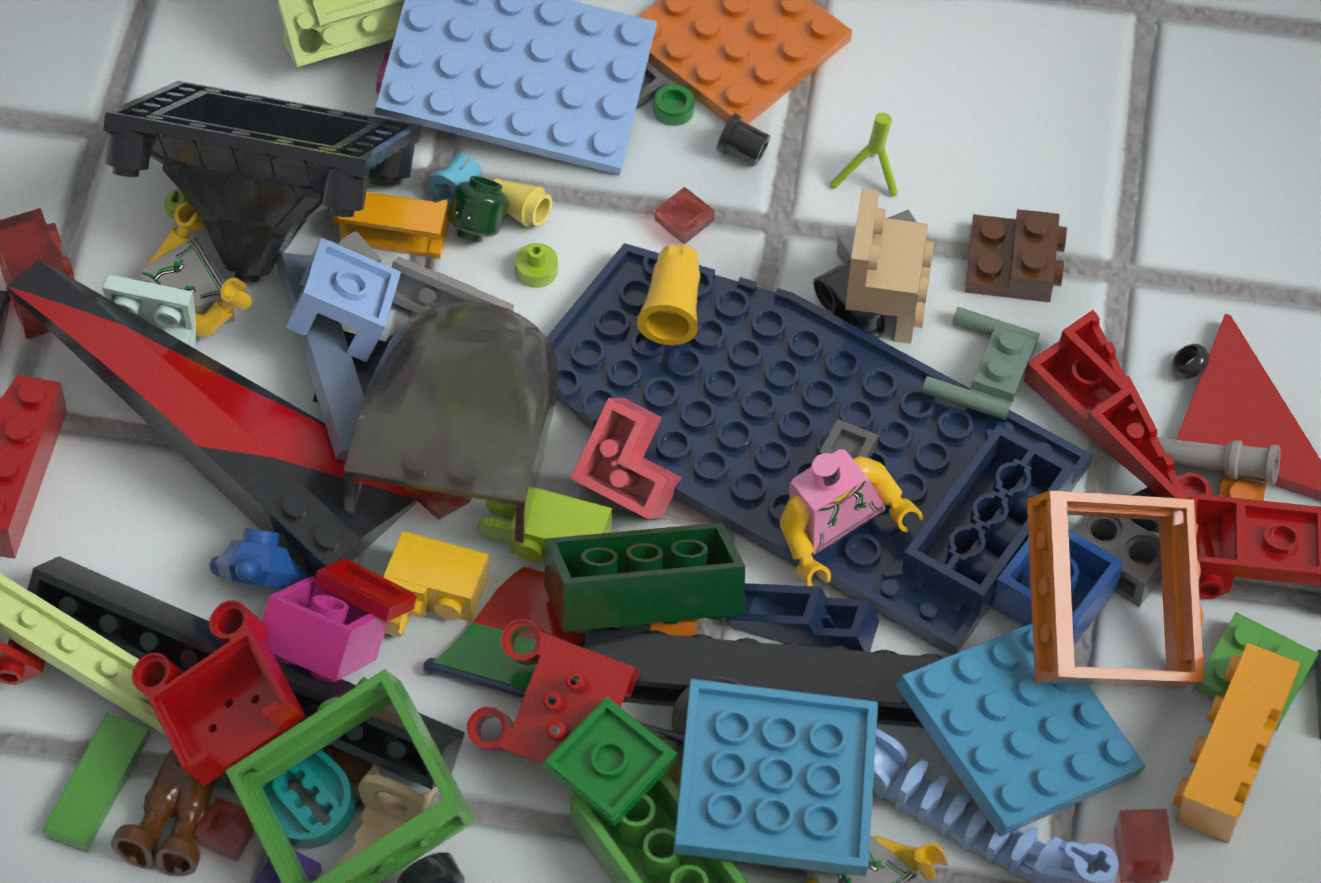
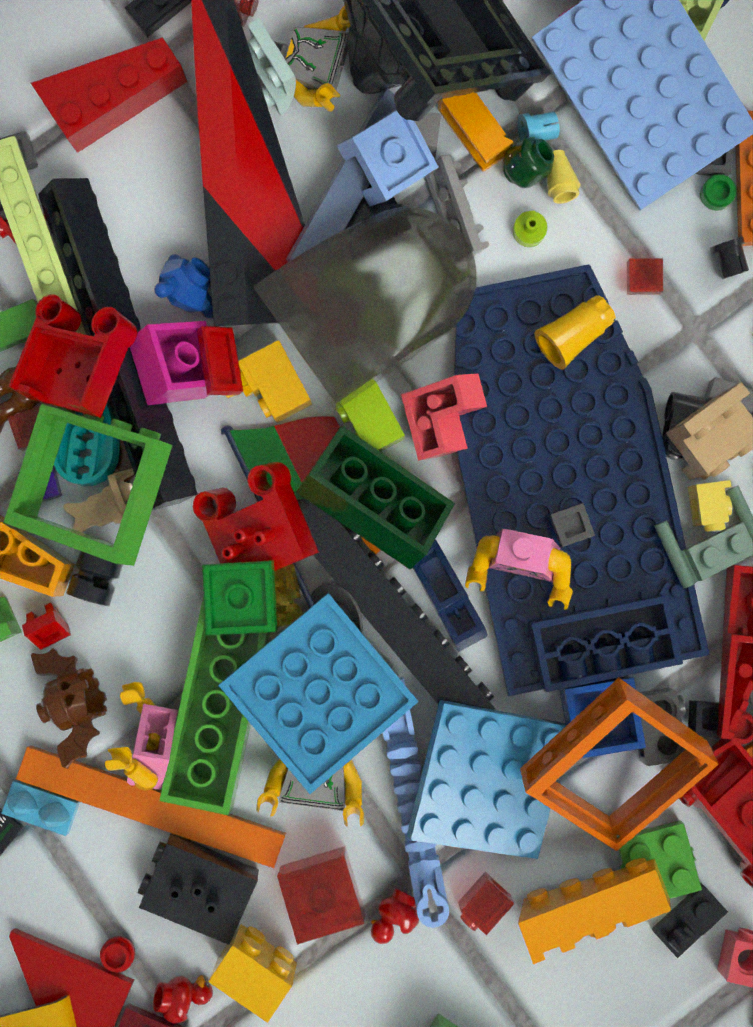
camera: 50 degrees right, 30 degrees up
(950, 339) = (710, 505): none -> light yellow brick

